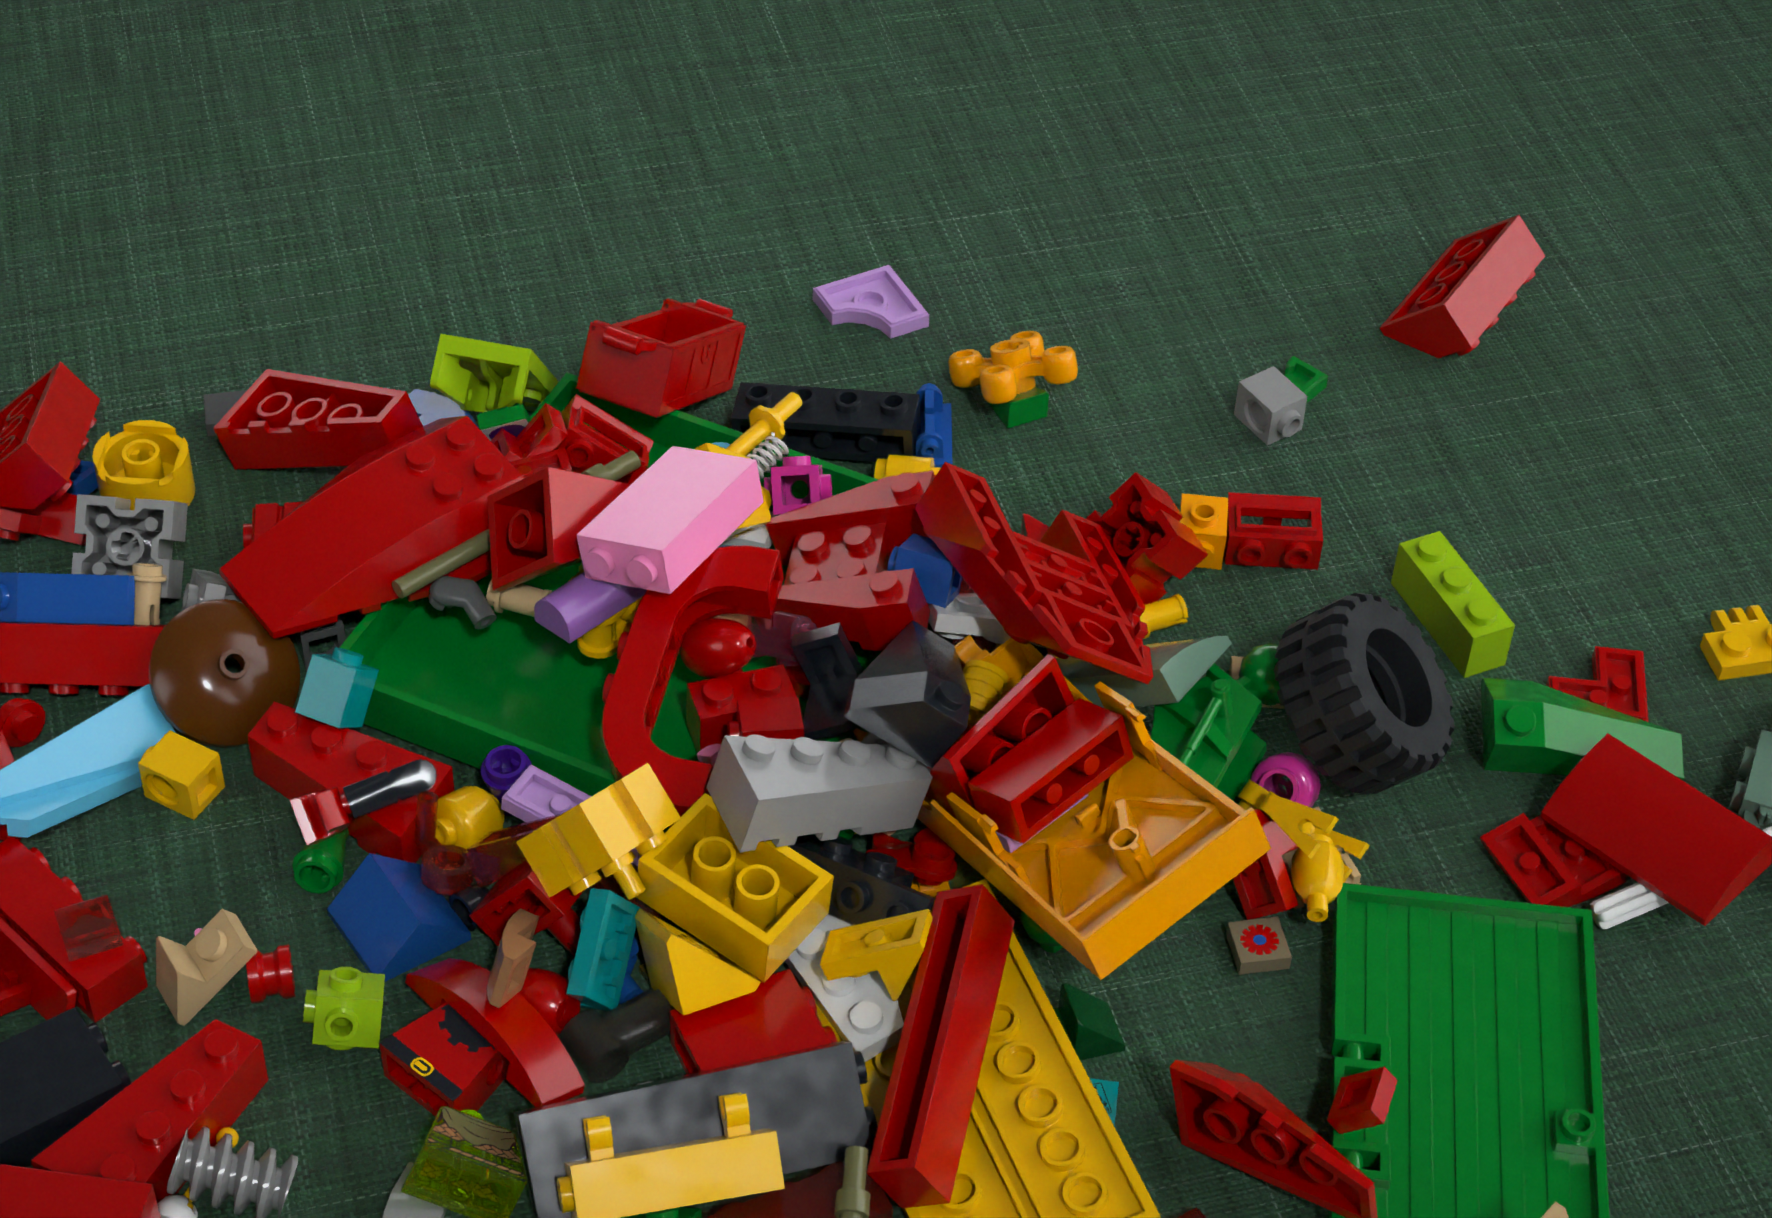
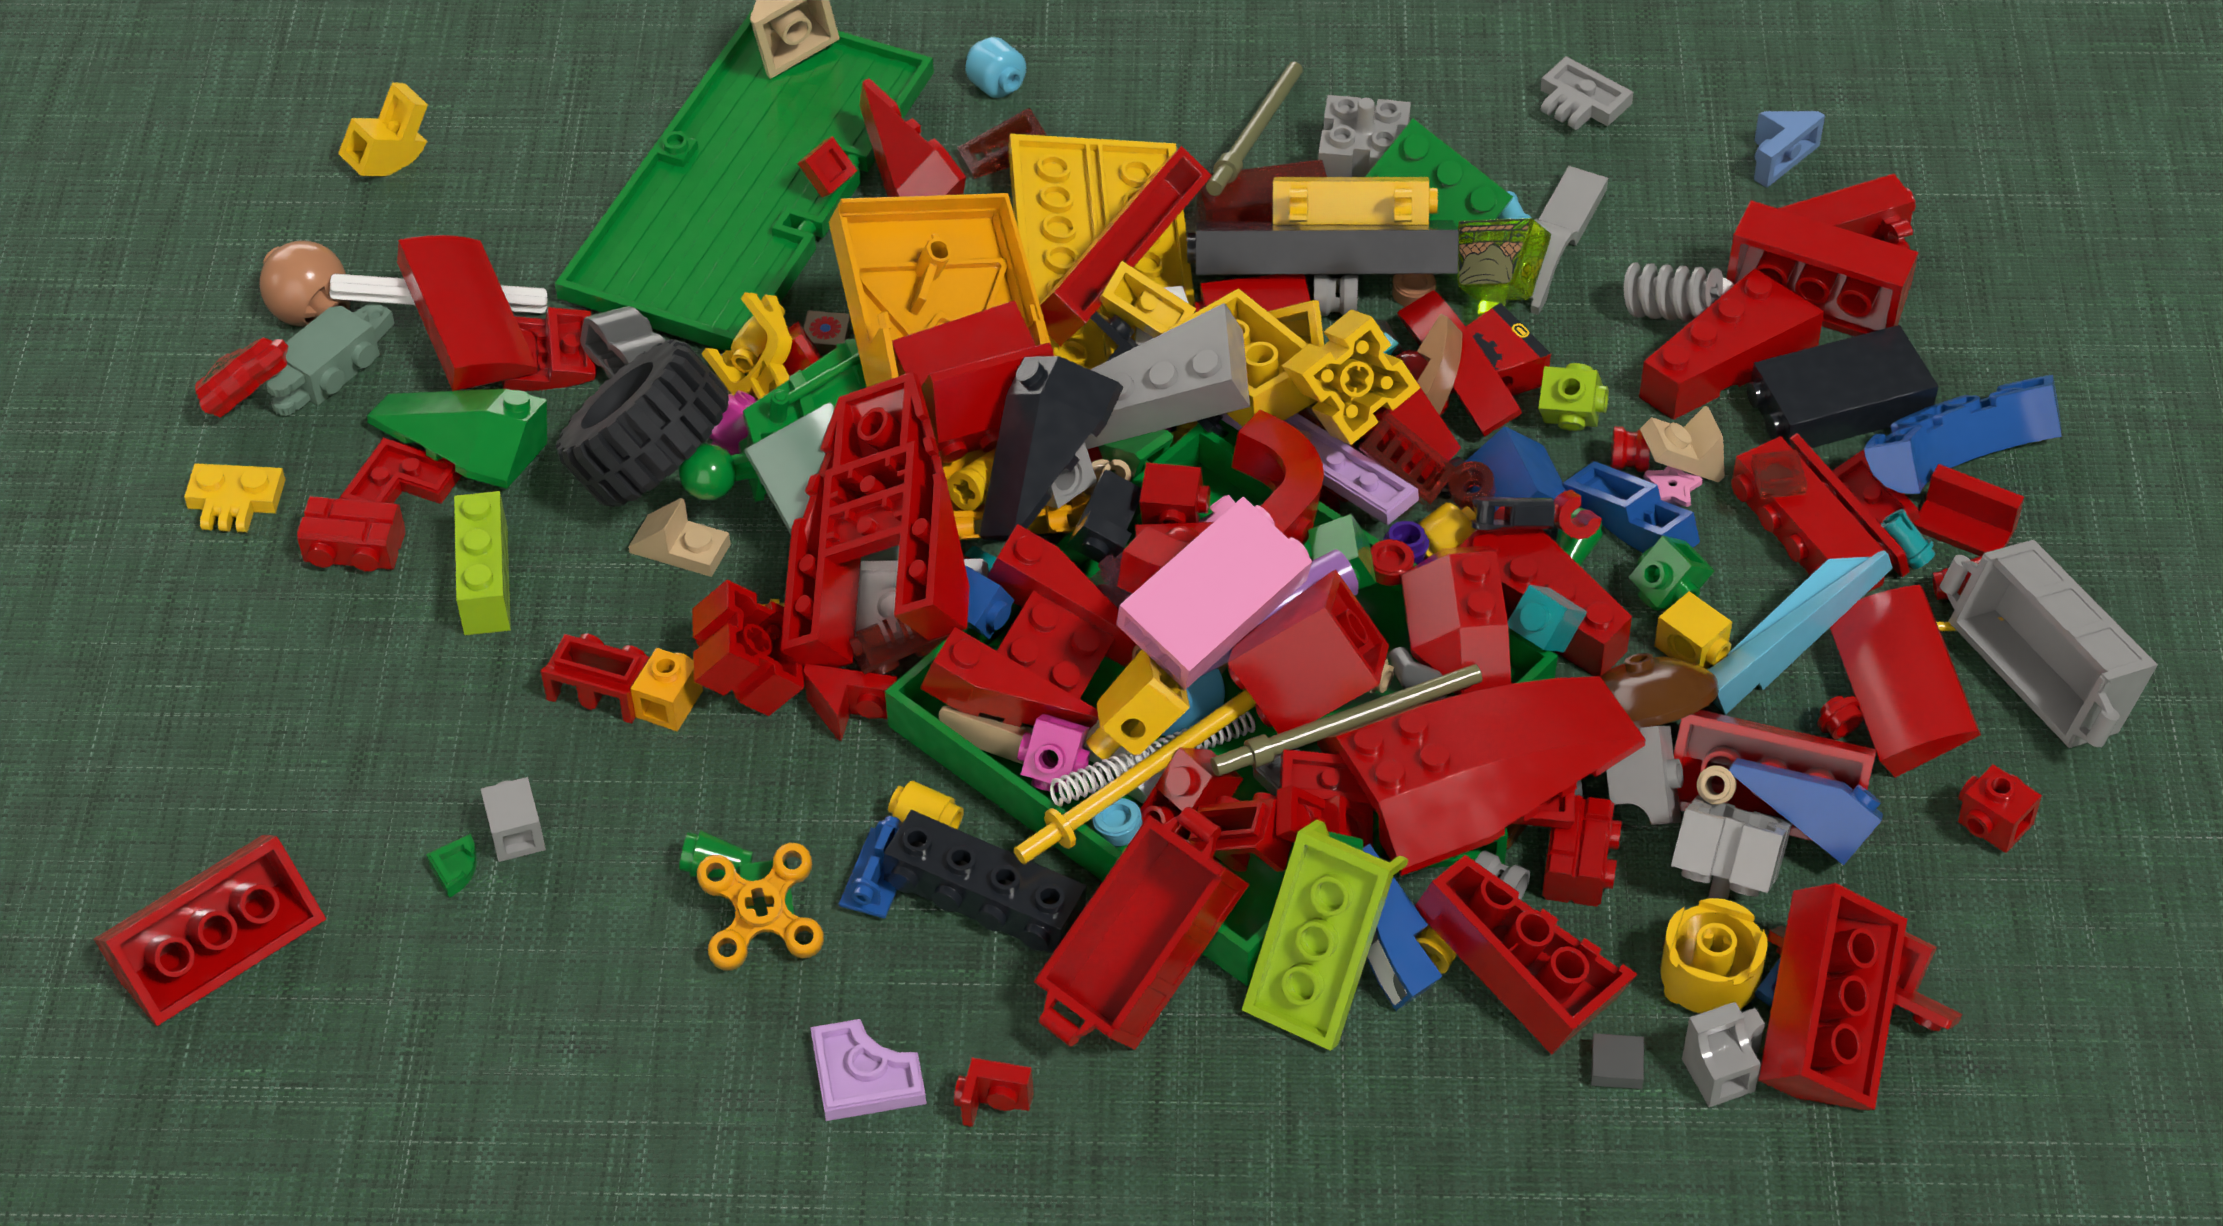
camera: 160 degrees left, 5 degrees up
(130, 401) = (1722, 1052): none -> light grey brick
(209, 815) = (1669, 573): none -> green brick
(264, 902) = (1631, 507): none -> blue slope
(432, 672) = (1459, 614): none -> red wedge
(515, 717) = (1391, 560): none -> red tile
(564, 682) = (1348, 538): none -> green brick
(756, 294) = (993, 1083): none -> red bracket
(1078, 413) = (702, 845): none -> green cone
(1457, 850) = (617, 338): none -> dark grey brick
(1600, 612) = (351, 533): none -> red brick

